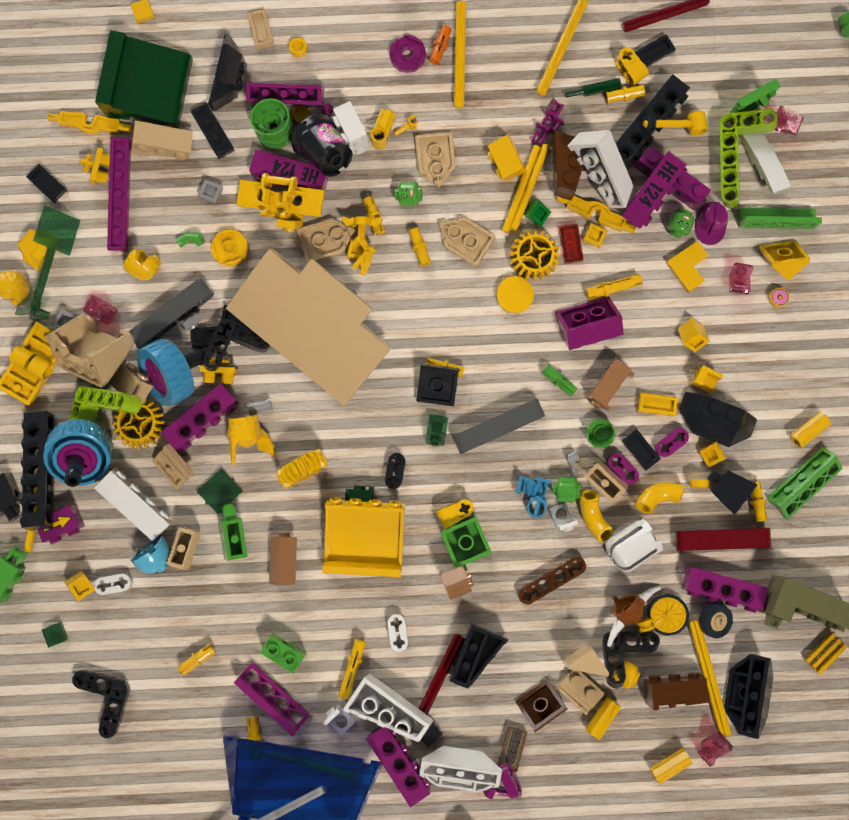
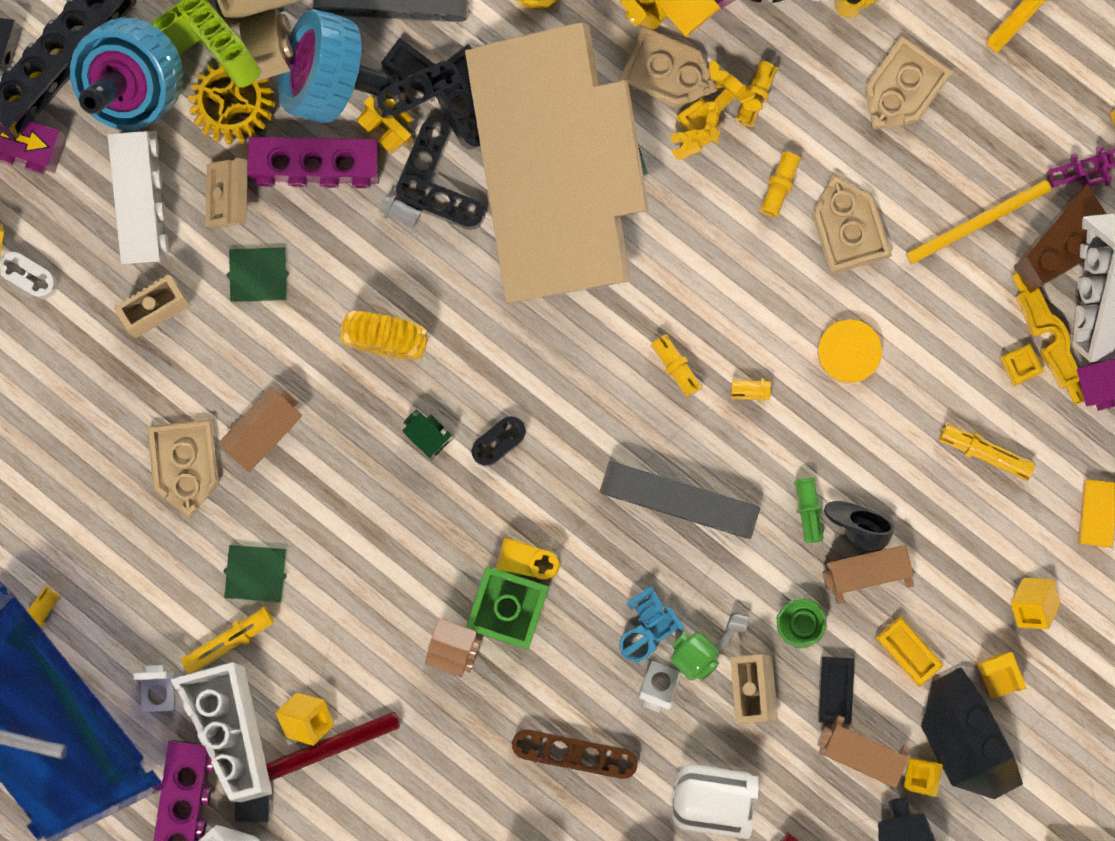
camera: 40 degrees right, 0 degrees up
(153, 556) = (105, 283): medium azure cylinder -> none
(190, 321) = (406, 28): light grey plate -> none
(196, 659) = (48, 458): yellow axle -> none
(232, 534) = (225, 341): bright green brick -> none
(247, 432) = (353, 230): yellow helmet -> none
(257, 383) = (423, 180): none -> black beam
(261, 606) = (183, 463): none -> tan tile
(267, 704) = (85, 593): magenta fence -> none
(283, 653) = (160, 545): bright green brick -> none
(337, 627) = (255, 573): none -> clear green piece
(363, 537) = (385, 489): yellow panel -> none
(402, 631) = (317, 641): white beam -> none
(409, 125) = (902, 15): yellow hand -> none
(409, 194) = (826, 104): bright green head -> none
(418, 672) = (305, 718): none -> yellow panel
(436, 430) = (596, 436): clear green bracket -> none
(437, 384) = (647, 379): black tile -> none
(475, 654) = (396, 758): black wedge -> none
(487, 349) = (751, 389): none -> yellow pin
(506, 158) = (992, 167): yellow brick -> none
(529, 188) = (991, 230): yellow piece -> none
(532, 247) = (931, 328): yellow gear -> none
(537, 212) = (972, 270): green slope -> none
(571, 243) = (980, 348): clear red tile -> none
(589, 323) = (913, 470): magenta slope -> none
(591, 367) = (863, 527): none -> black cap
(593, 517) = (698, 719): yellow cylinder -> none
(625, 465) = (799, 693): magenta beam -> none
(659, 493) = (808, 764): yellow cylinder -> none
(669, 439) = (883, 724): magenta beam -> none
(678, 467) = (862, 753): none -> medium nougat brick
(698, 483) = (872, 798): yellow tile -> none

